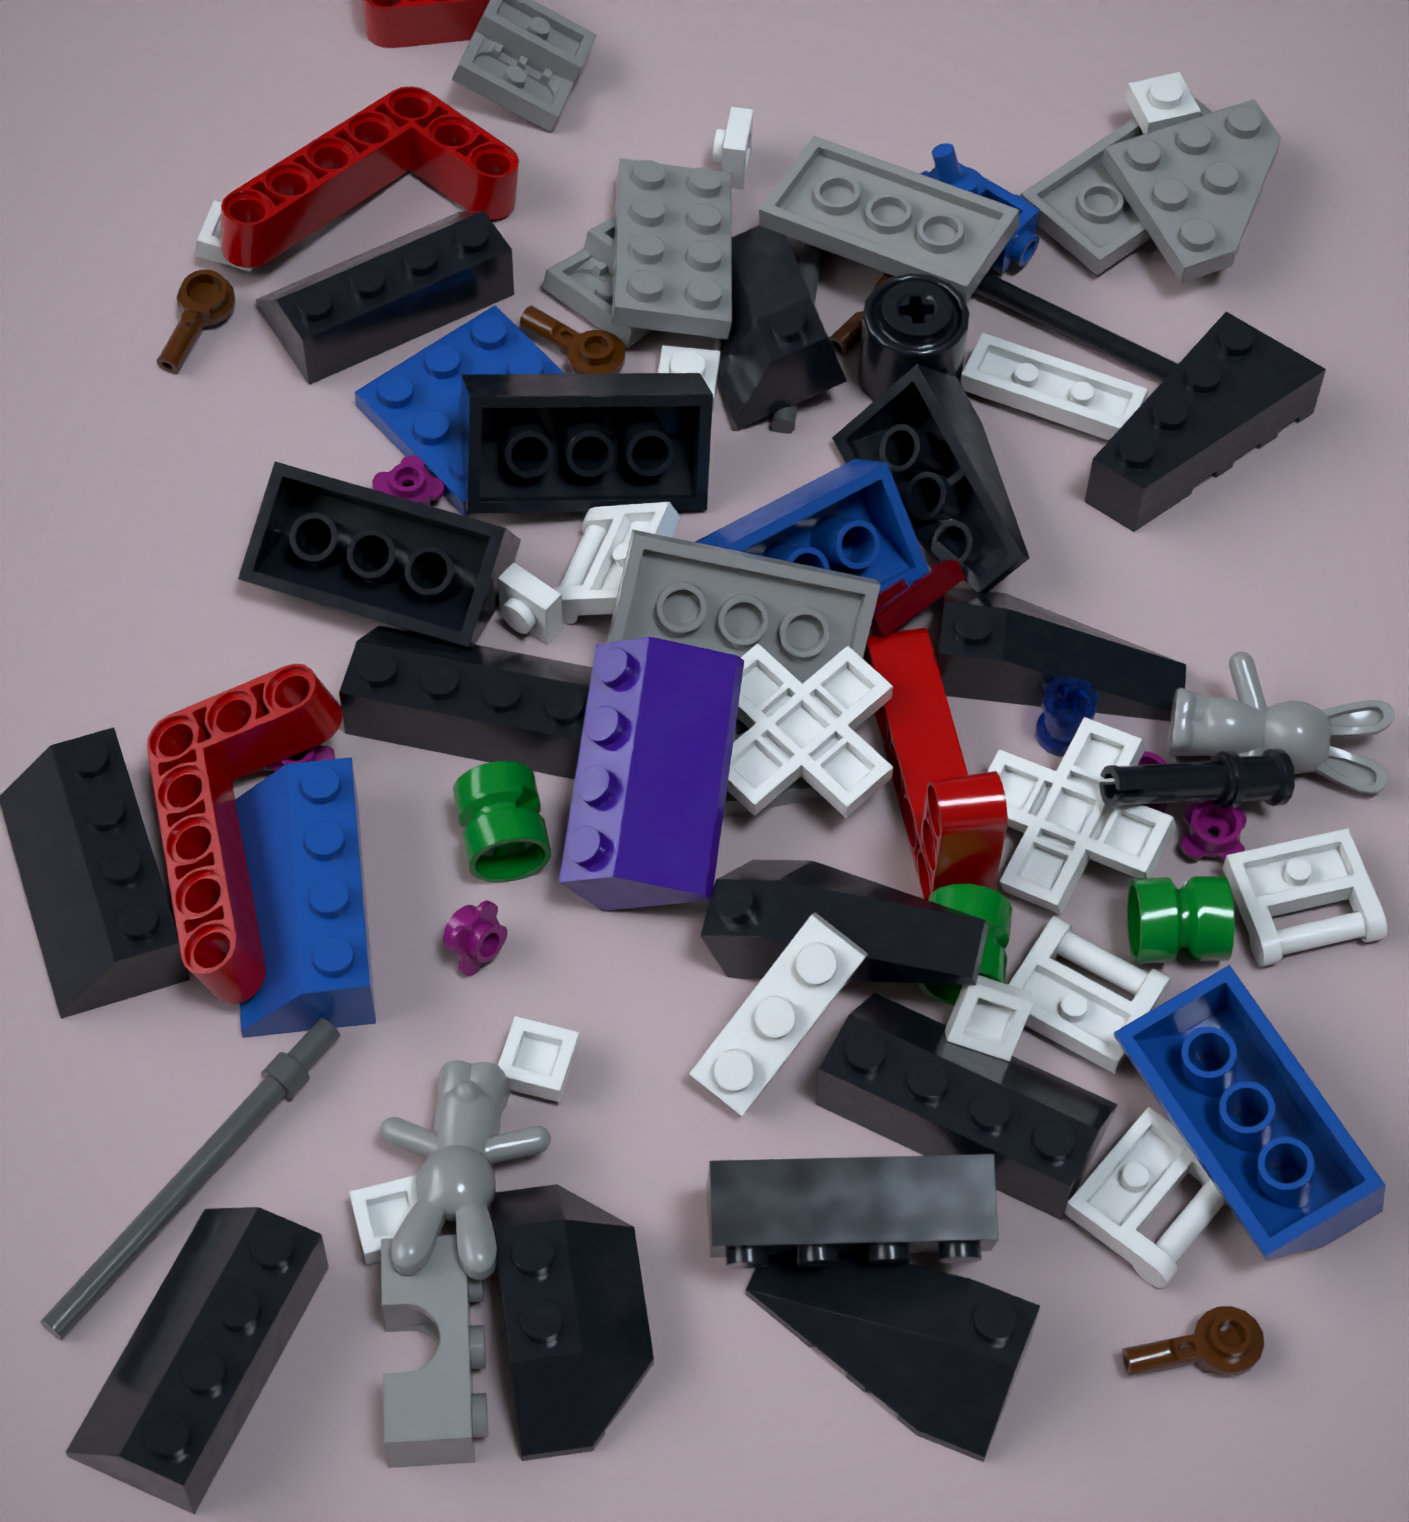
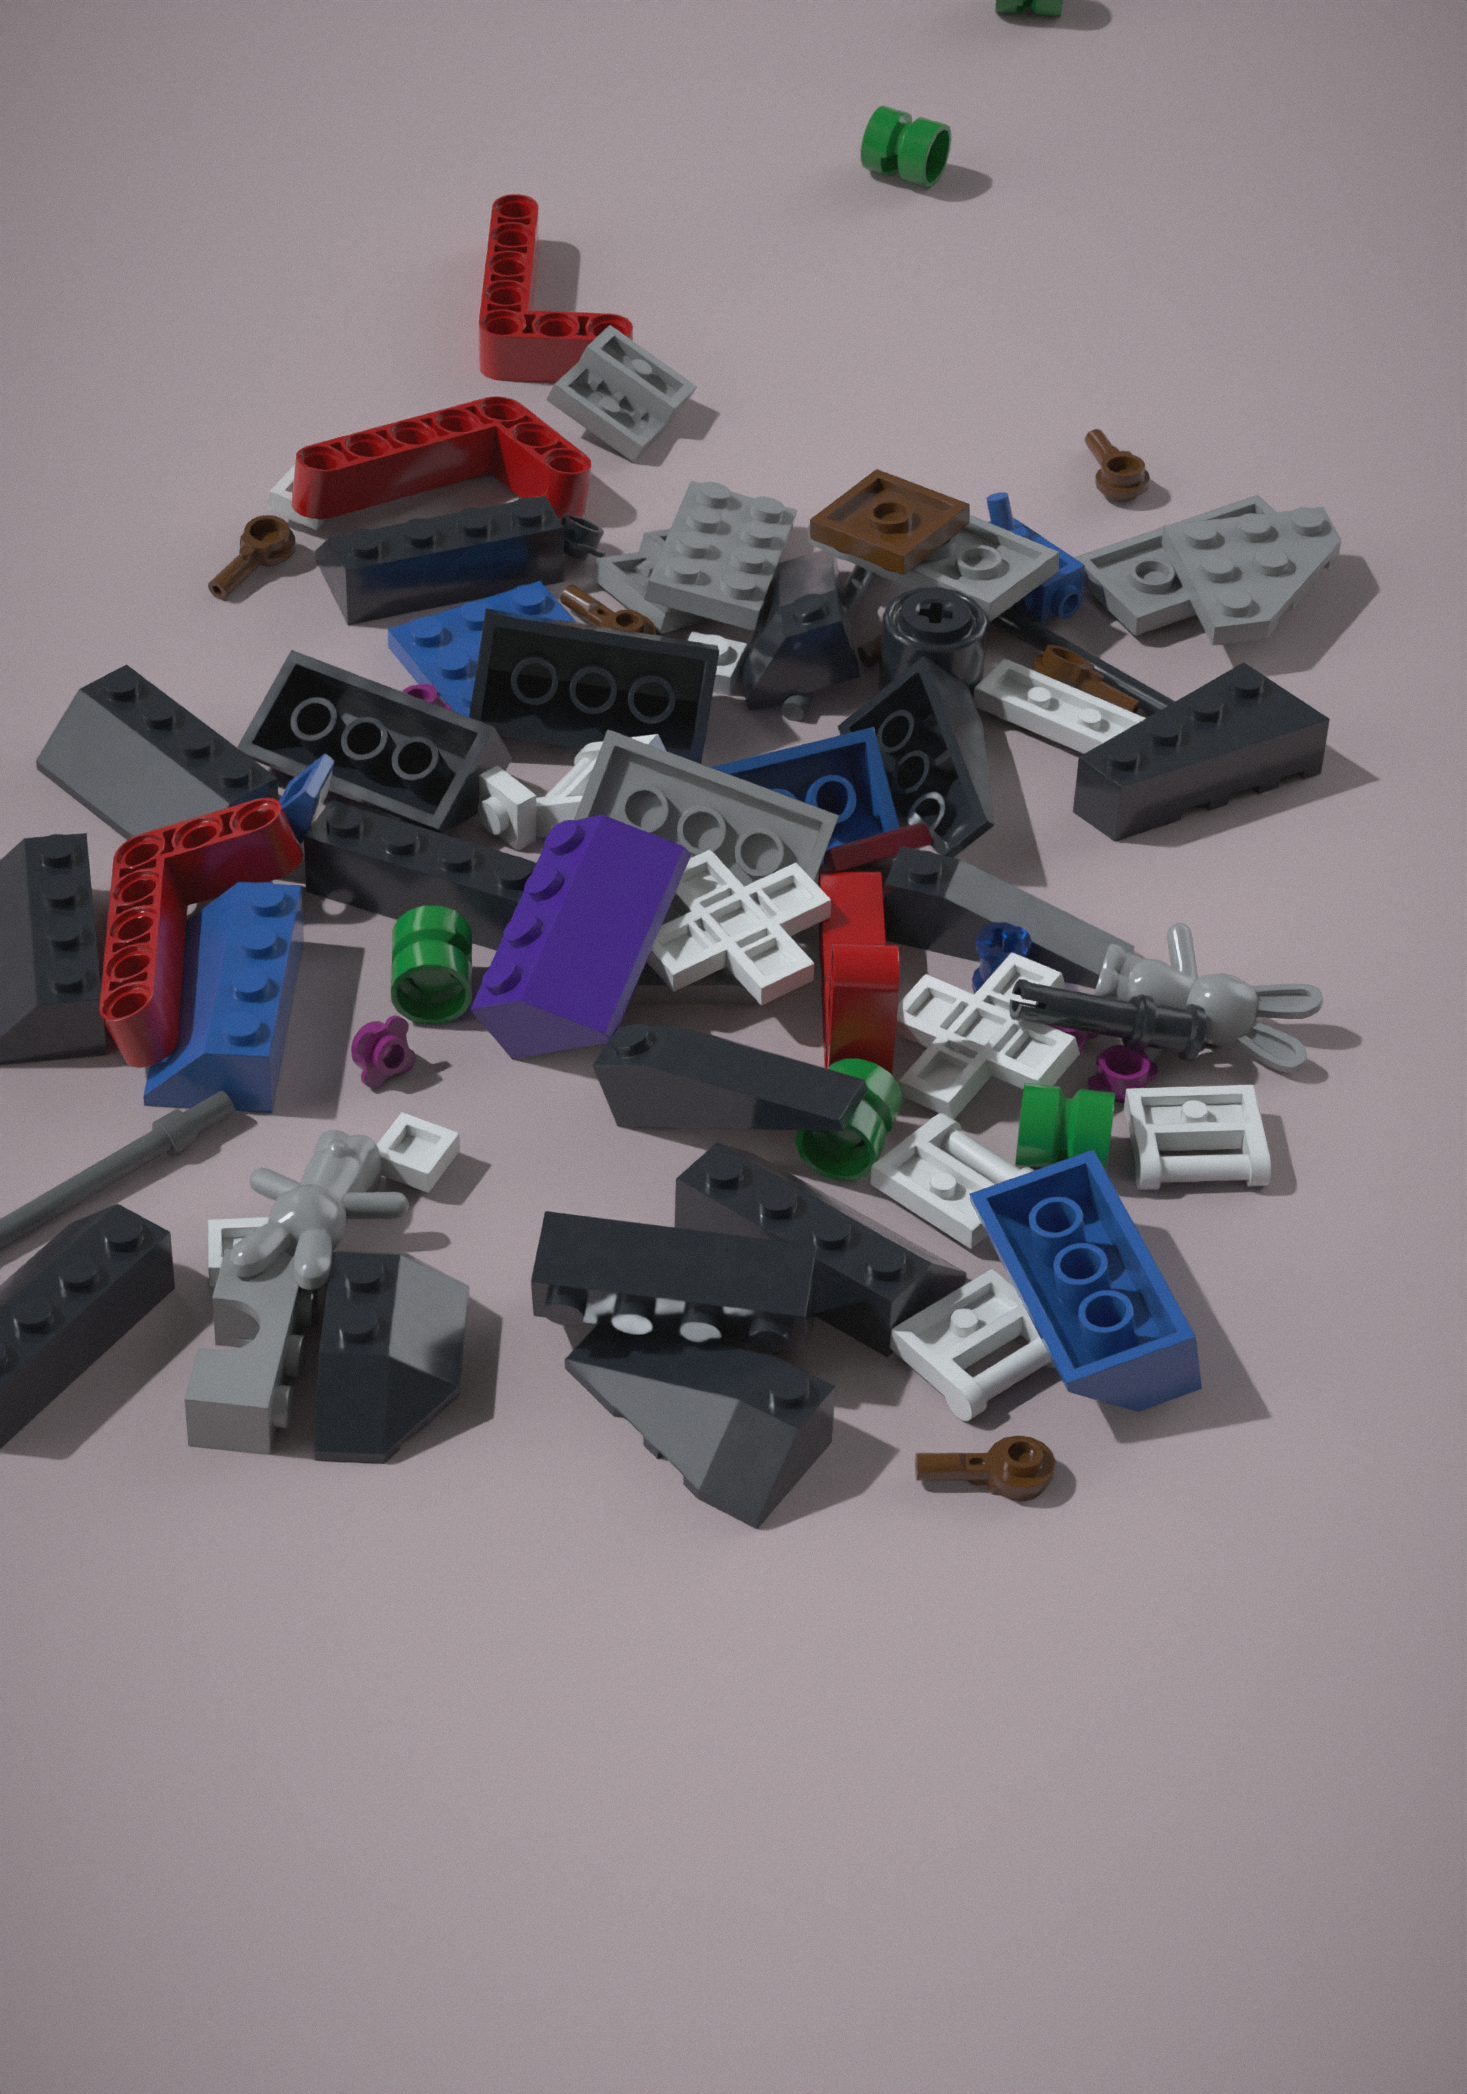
camera: 10 degrees right, 15 degrees down
(158, 614) = (146, 758): none -> black slope
(330, 646) = (306, 795): none -> blue slope
(525, 241) = (581, 537): none -> black plate
(734, 145) = (806, 487): white plate -> none
(778, 1014) = (650, 1134): white plate -> none
(845, 202) = (889, 521): none -> reddish brown plate
(989, 1017) = (854, 1173): white plate -> none
(1039, 77) = (1121, 473): none -> reddish brown plate
(1052, 336) = (1078, 673): none -> reddish brown plate
(1161, 102) = (1231, 497): white plate -> none

